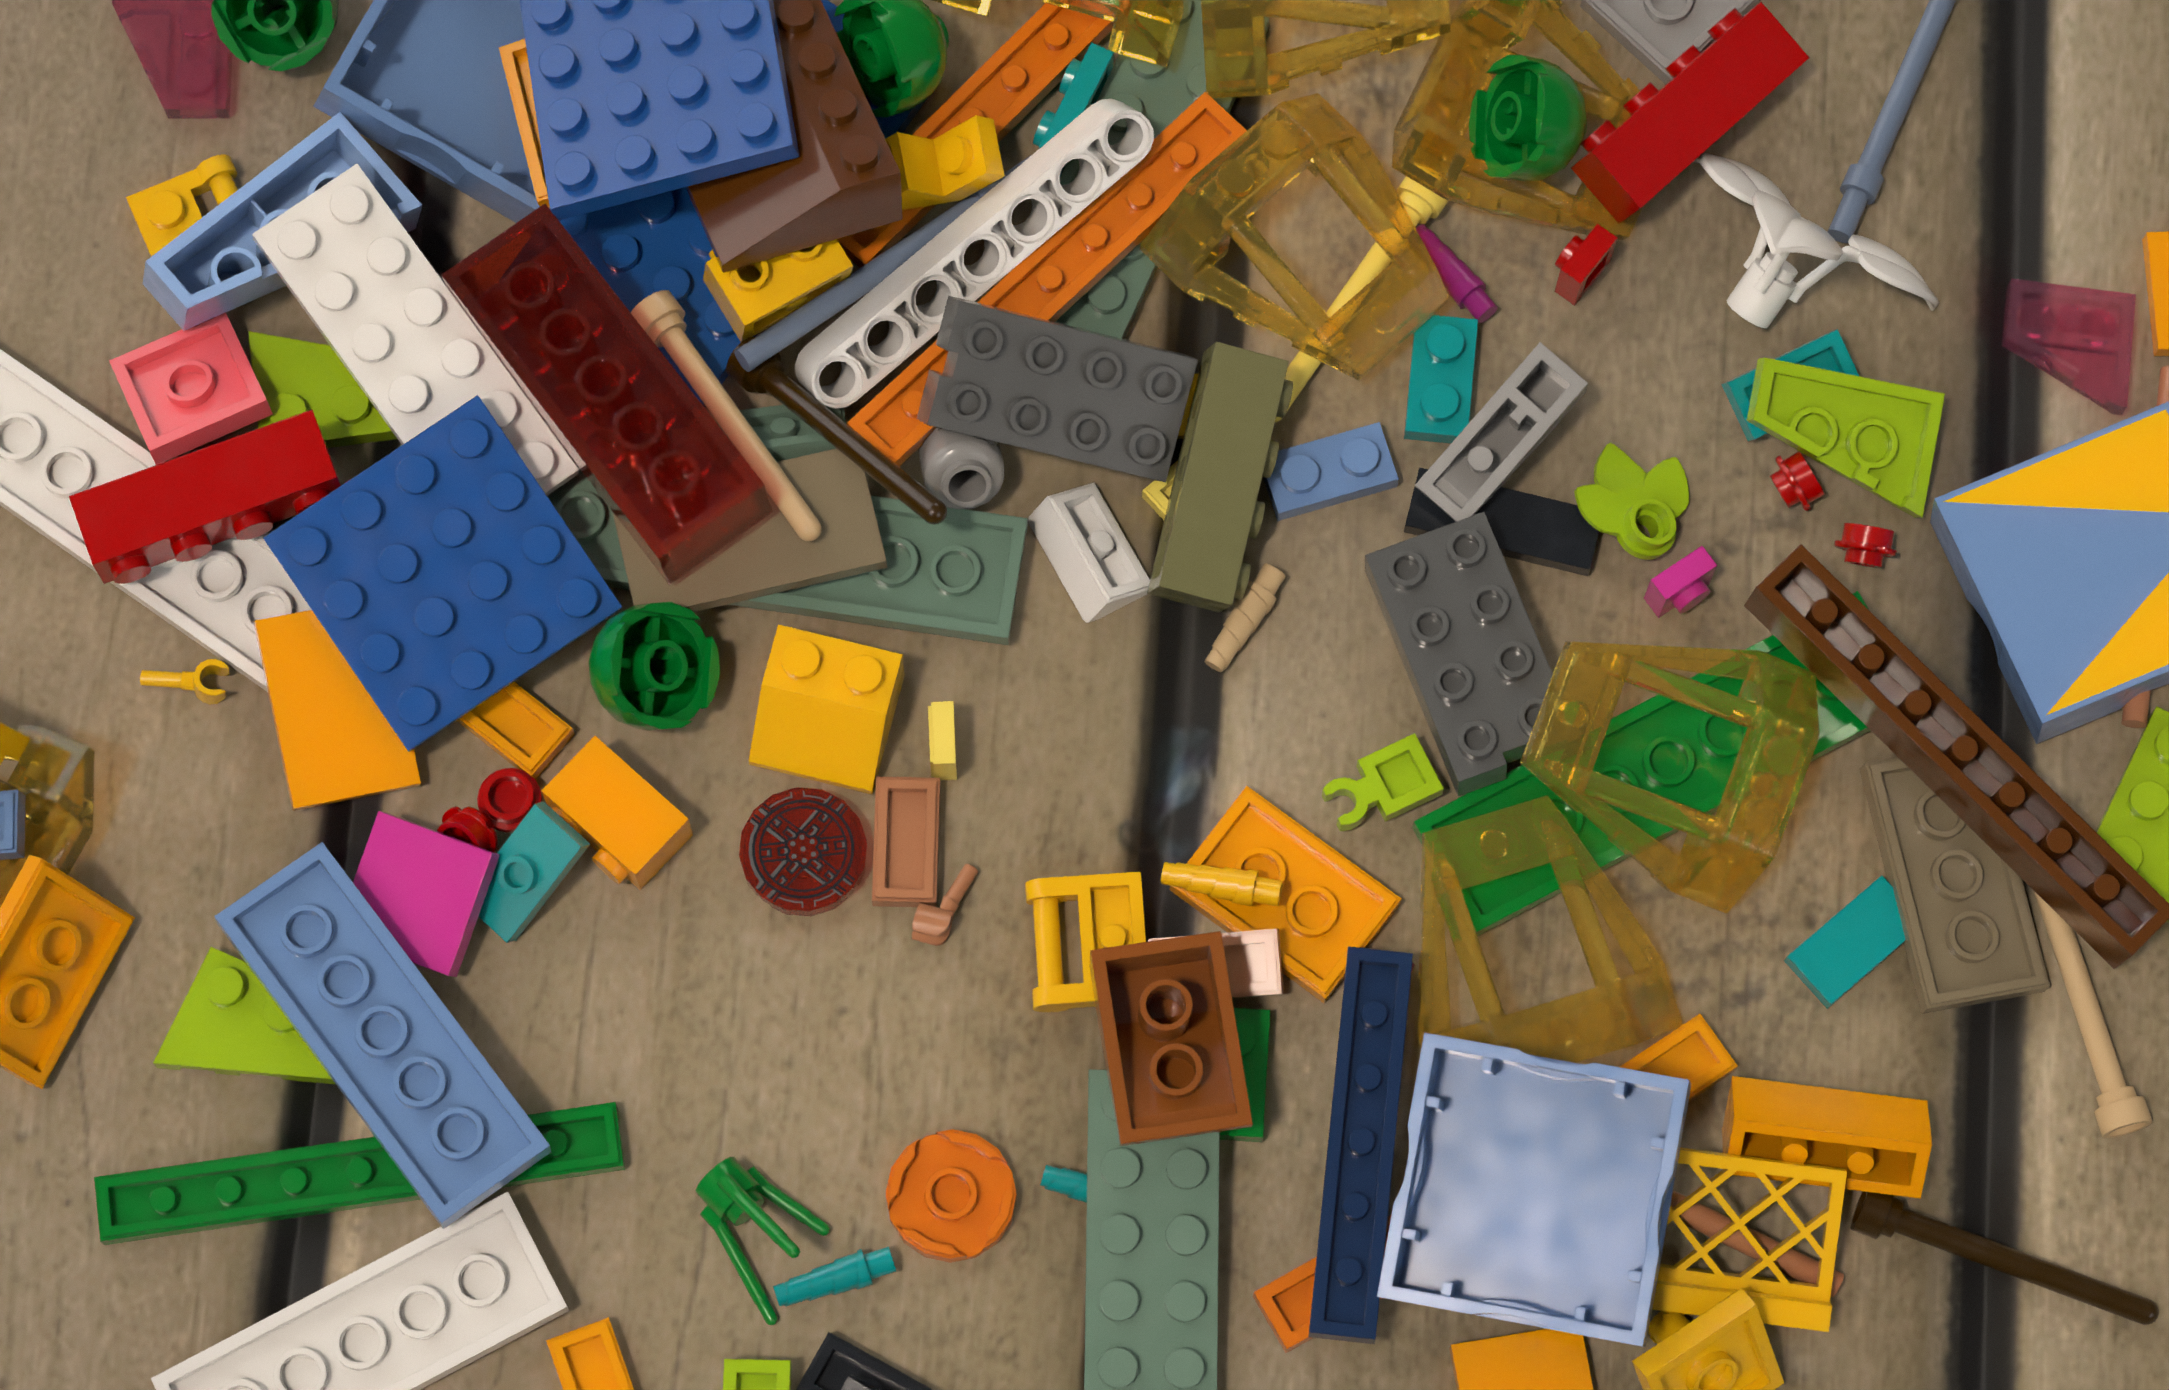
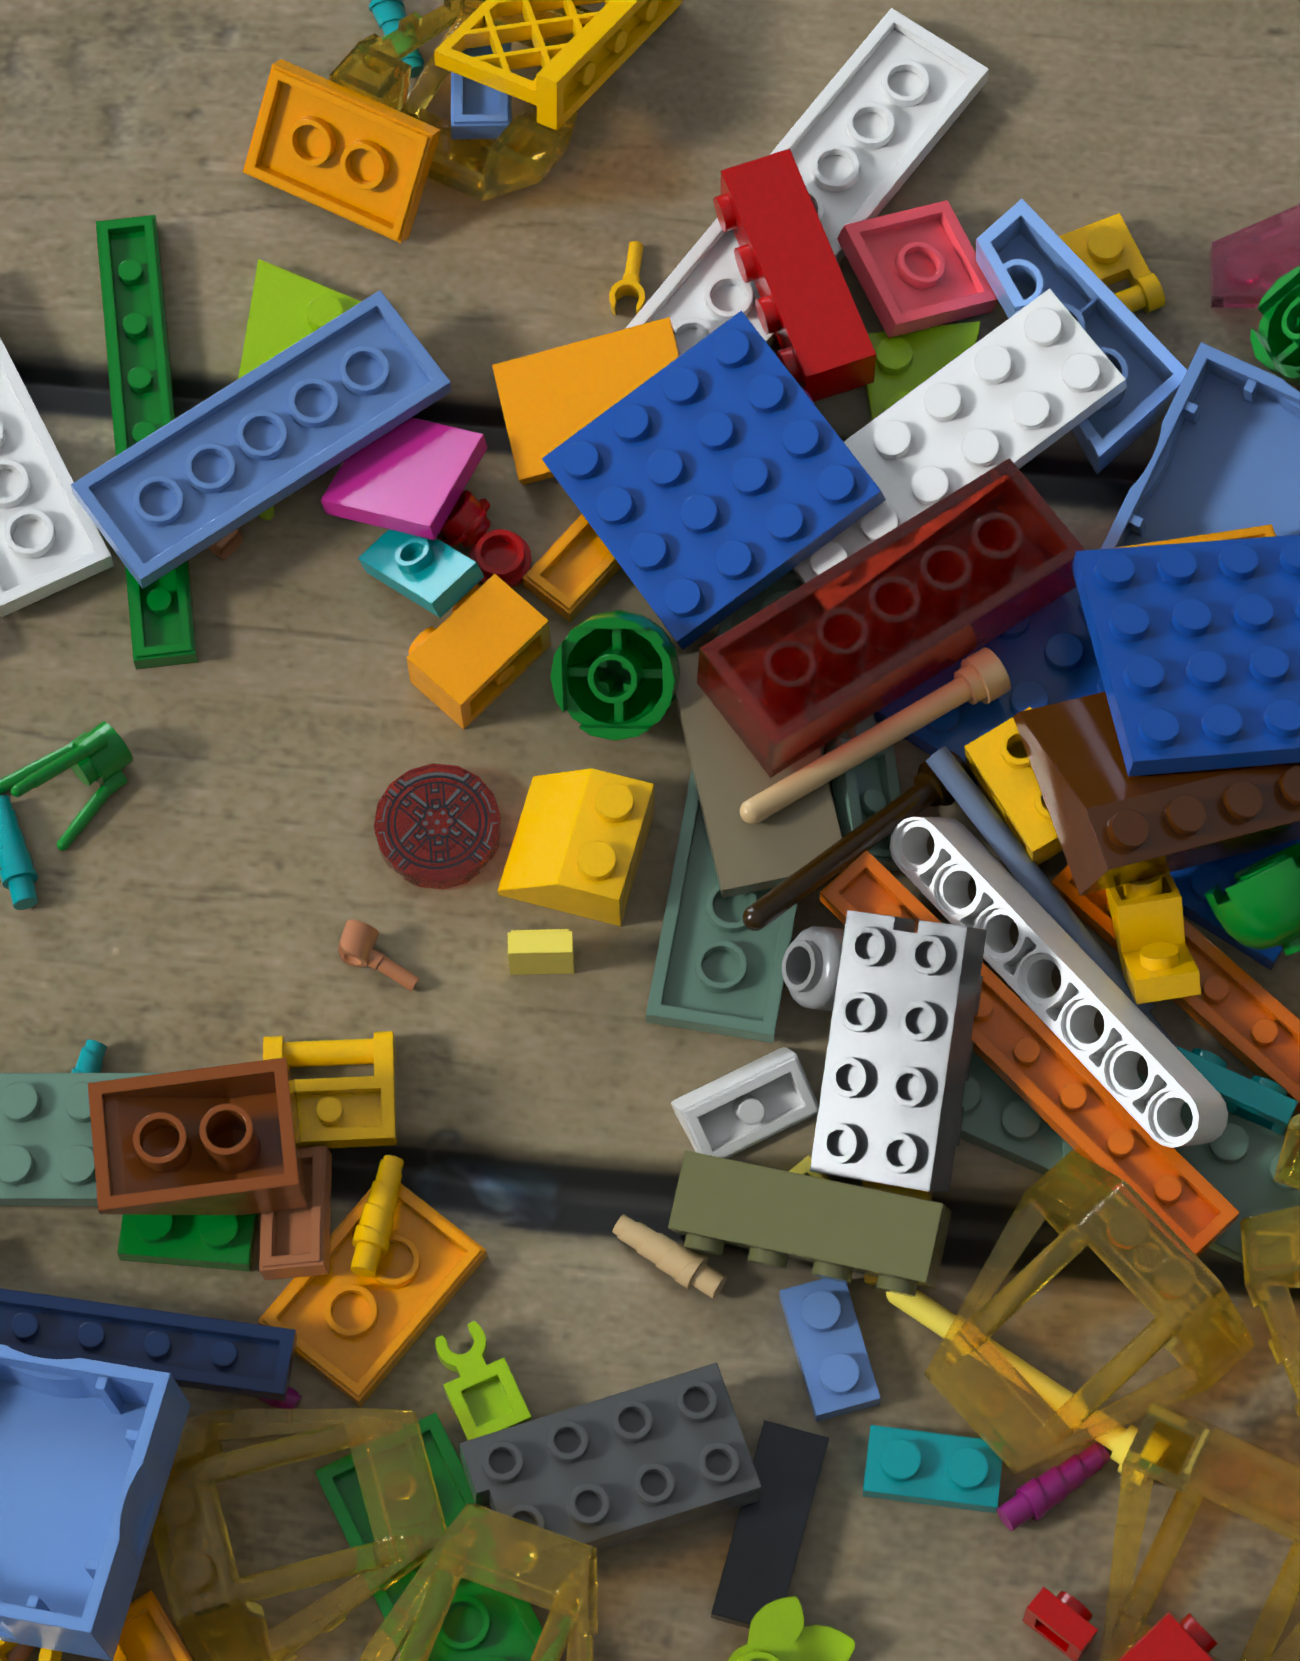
camera: 95 degrees right, 5 degrees down
(906, 841) = (444, 922): nougat tile -> none
(951, 1195) = (85, 960): orange tile -> none
(1503, 434) = (858, 1521): light grey slope -> none
(1527, 119) = (1213, 1558): green cylinder -> none

